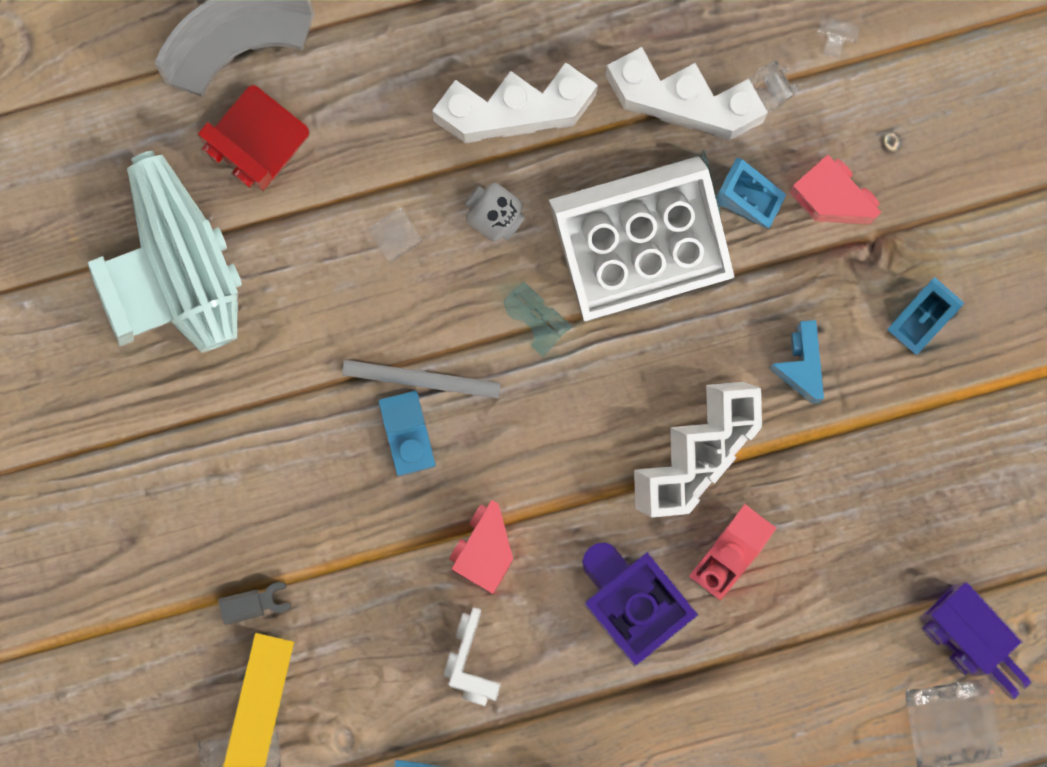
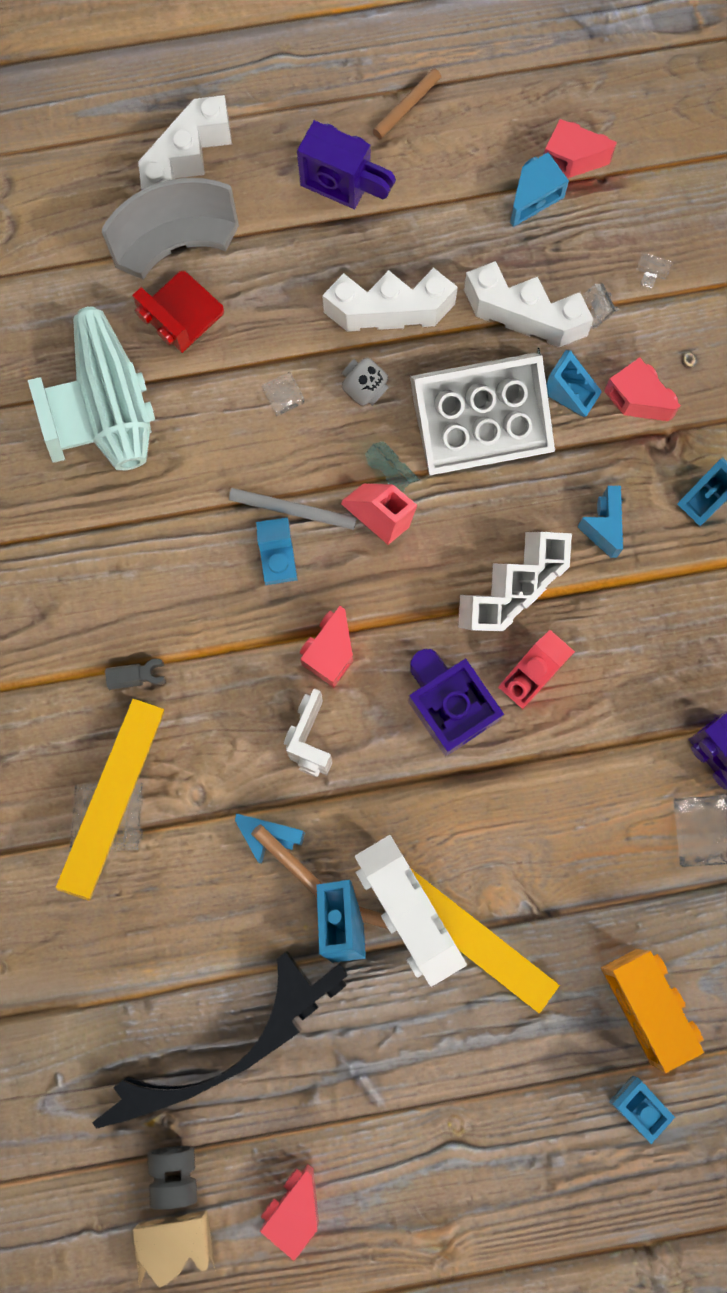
camera: 10 degrees right, 5 degrees down
(528, 373) = (381, 509): none -> coral slope

